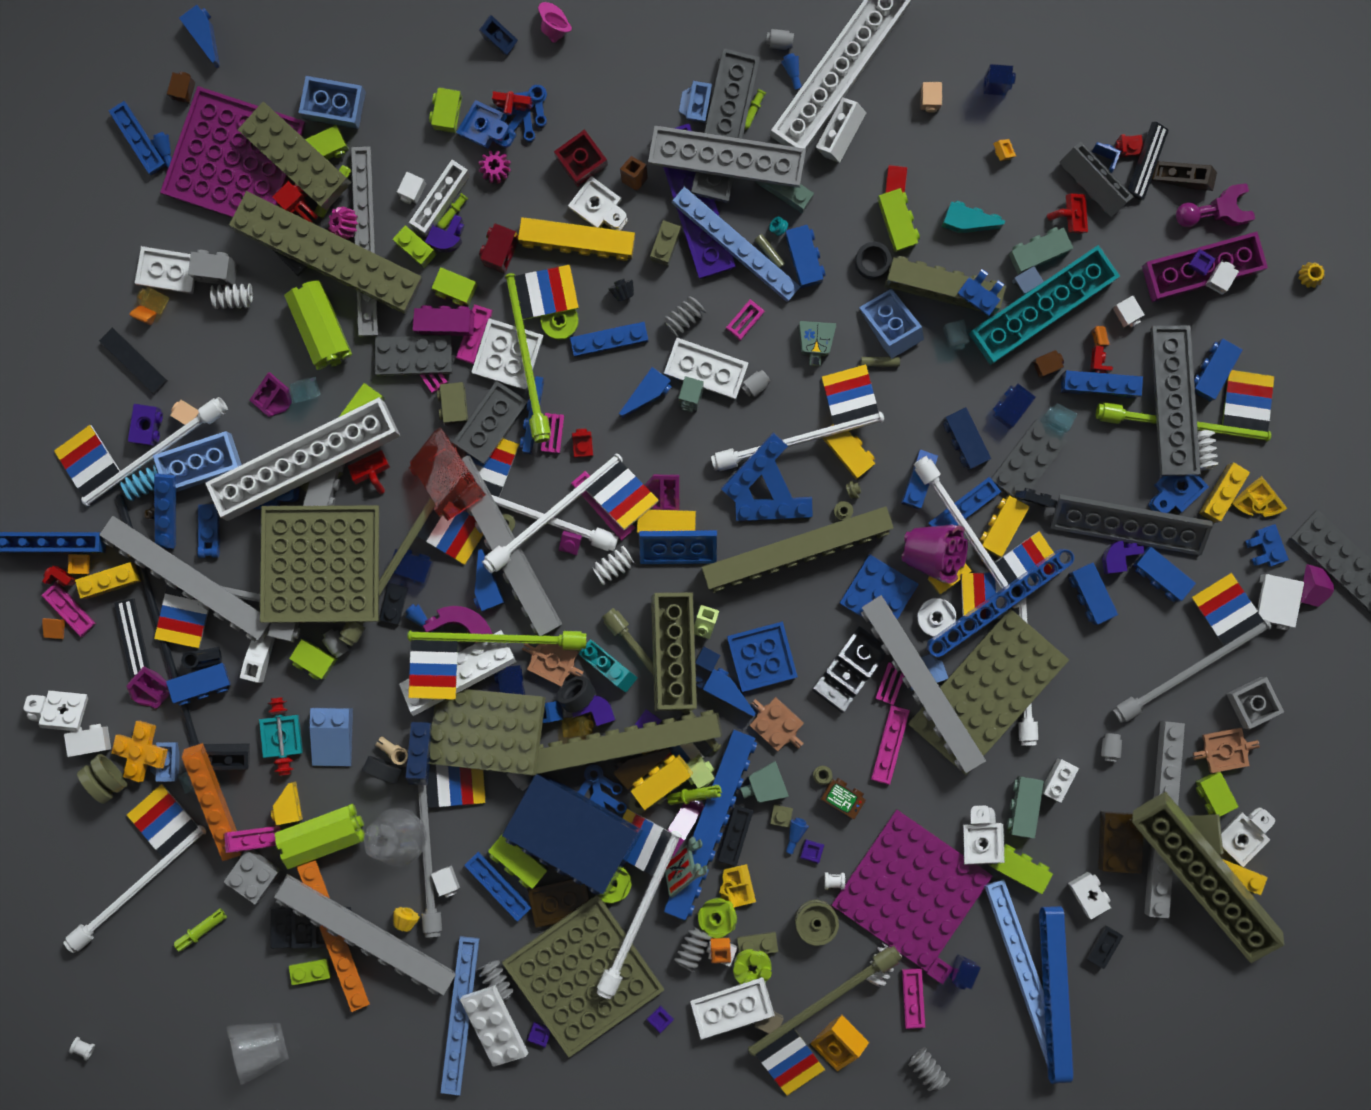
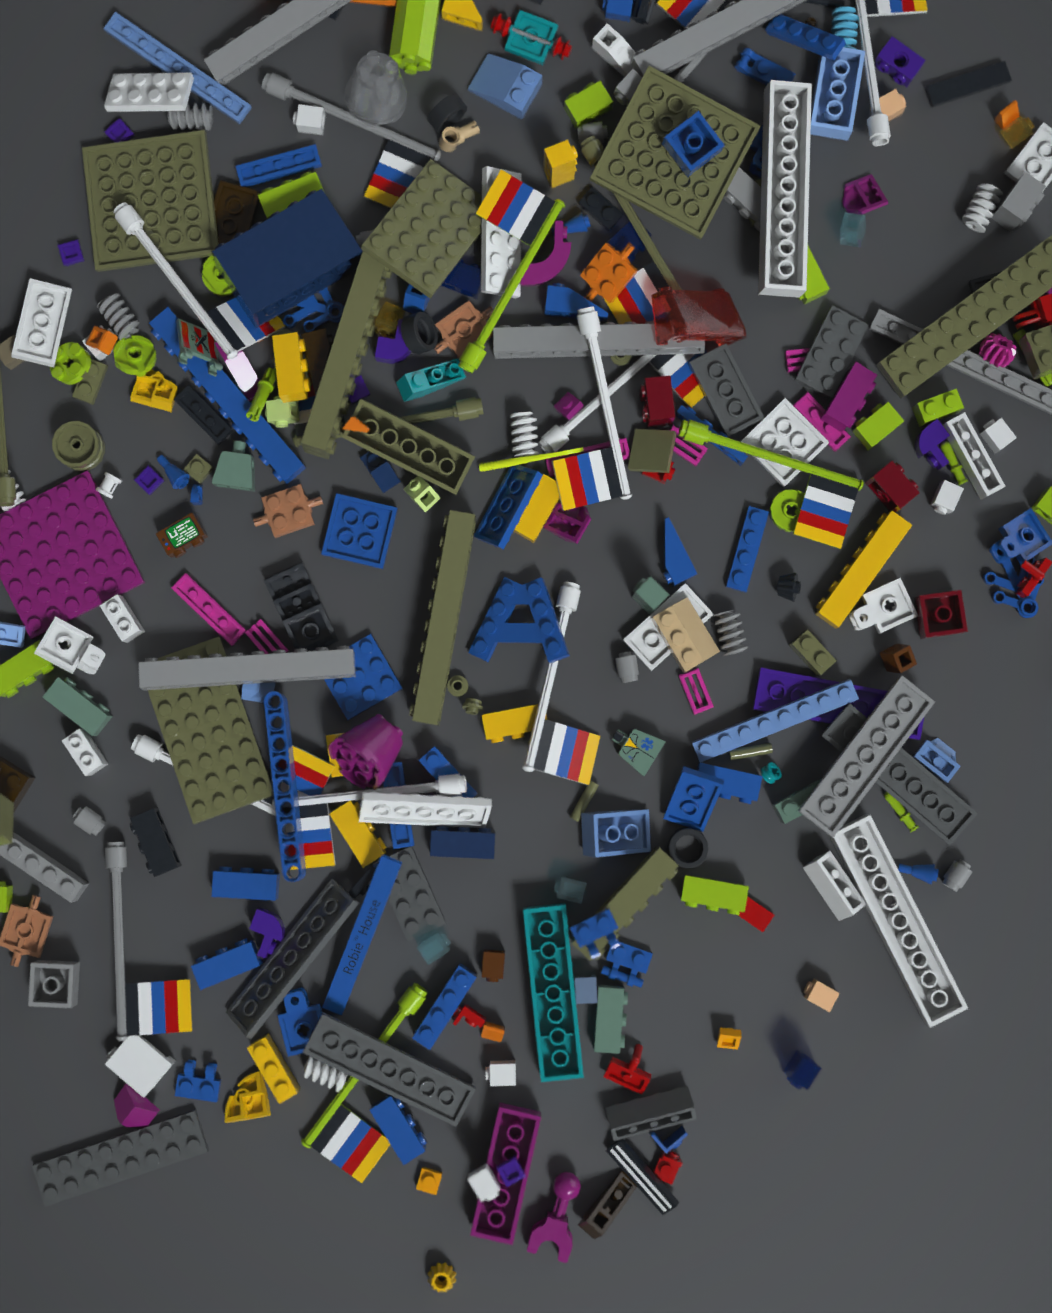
camera: 115 degrees right, 0 degrees up
(308, 550) = (693, 144): none -> blue brick
(318, 324) = (909, 274): lime brick -> none
(369, 468) = (743, 252): red plate -> none
(377, 653) = (560, 163): none -> yellow brick
(404, 918) = (295, 63): yellow piece -> none
(419, 754) = (443, 154): dark blue brick -> none
(444, 567) = (609, 272): none -> orange plate
(453, 403) = (764, 365): olive brick -> none
(483, 202) = (946, 497): none -> white brick
(491, 161) = (983, 529): dark pink gear -> none
(529, 471) = (658, 401): none -> dark red brick
(571, 455) = (652, 450): none -> olive tile
(641, 564) = (521, 460): none -> neon yellow piece
(682, 700) = (355, 424): none -> orange slope
(706, 350) = (685, 634): none -> tan slope
(724, 688) = (348, 478): blue slope -> none
(802, 805) = (197, 494): none -> blue tile
(827, 779) = (209, 525): olive plate -> none
(833, 274) = (693, 799): none -> blue plate
(936, 809) = (122, 618): none -> white brick
(938, 606) = (314, 711): white plate -> none
(958, 481) = (424, 810): none -> white plate
(964, 219) = (680, 960): teal slope -> none
(983, 259) = (630, 957): none -> blue plate
(1013, 406) = (470, 907): clear blue brick -> none
(1082, 478) = (362, 934): none -> blue tile
(1099, 684) = (155, 842): none -> black brick
(1243, 324) = (429, 1180): none -> light orange plate

